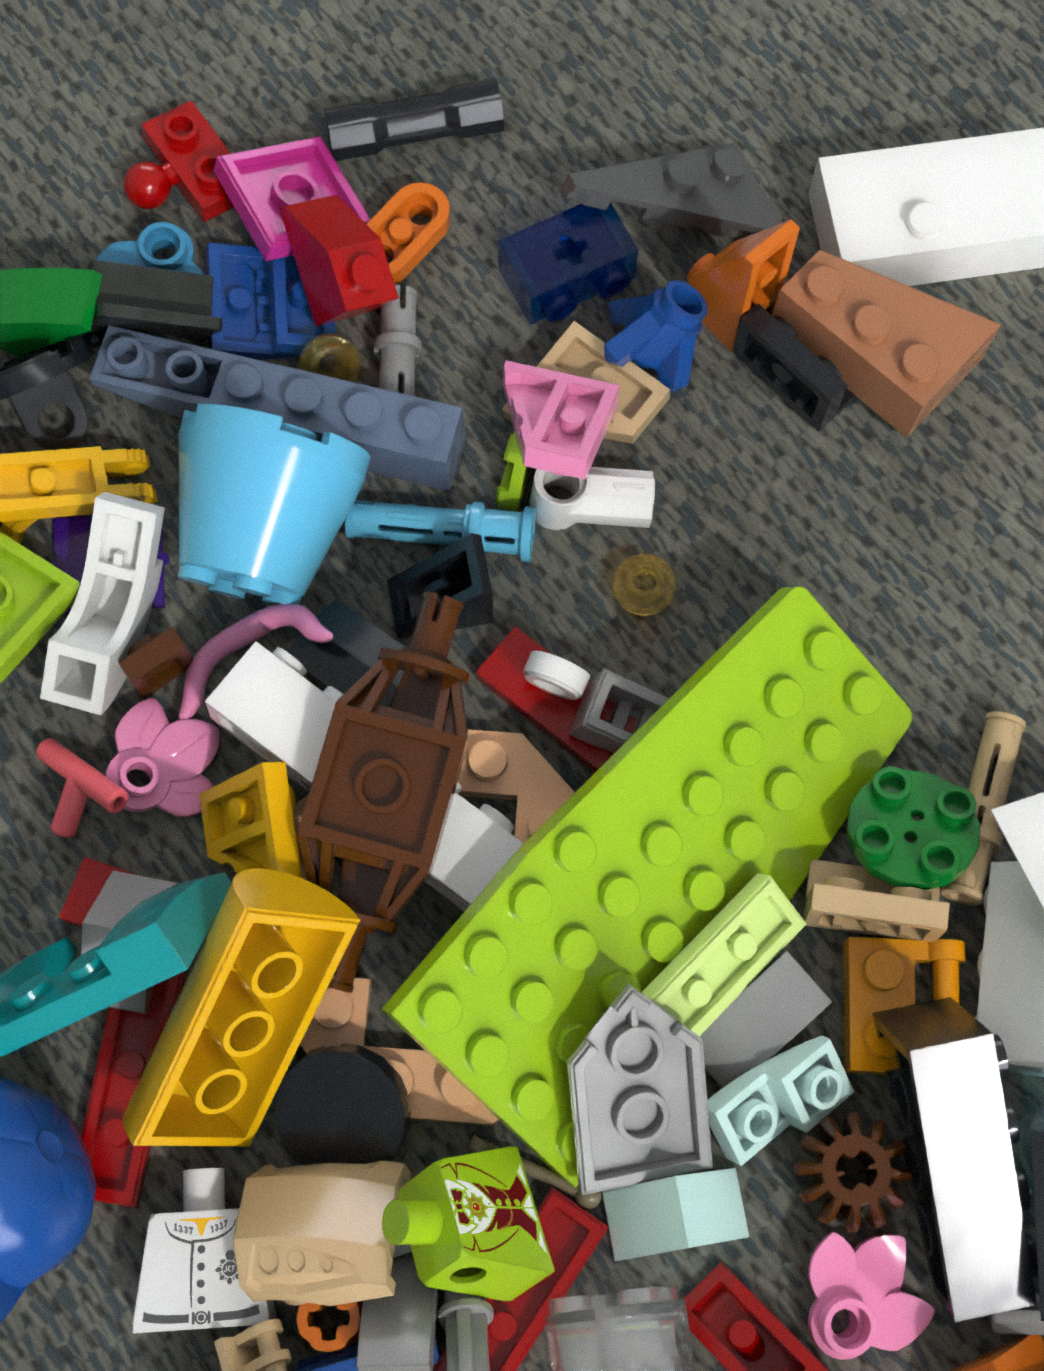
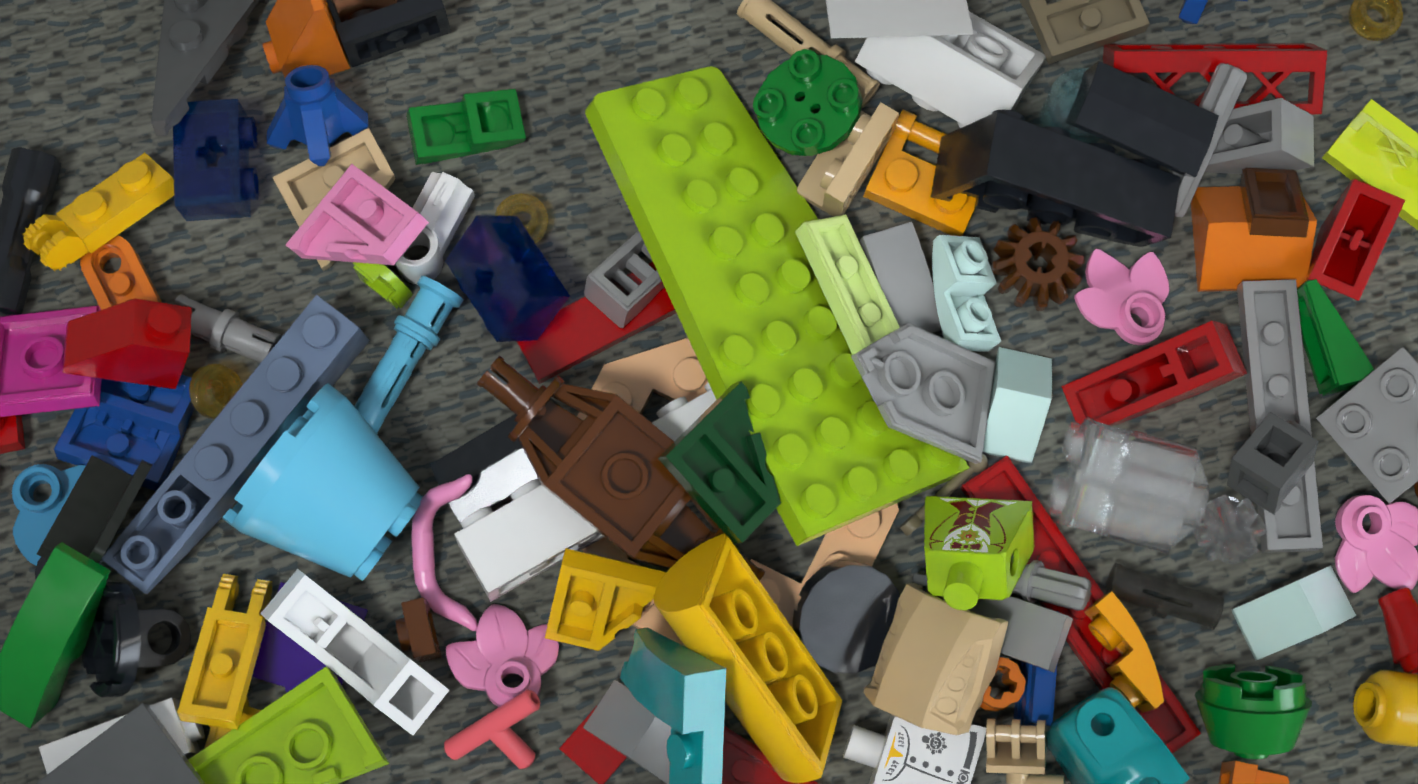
camera: 70 degrees left, 5 degrees up
(435, 888) = (725, 466): none -> dark green wing
(453, 572) = (456, 367): black slope -> none
(462, 179) = (100, 213): none -> yellow hinge
(556, 675) = (574, 316): white tile -> none
(566, 589) = (507, 278): none -> clear blue brick
(720, 489) = (465, 128): none -> green slope

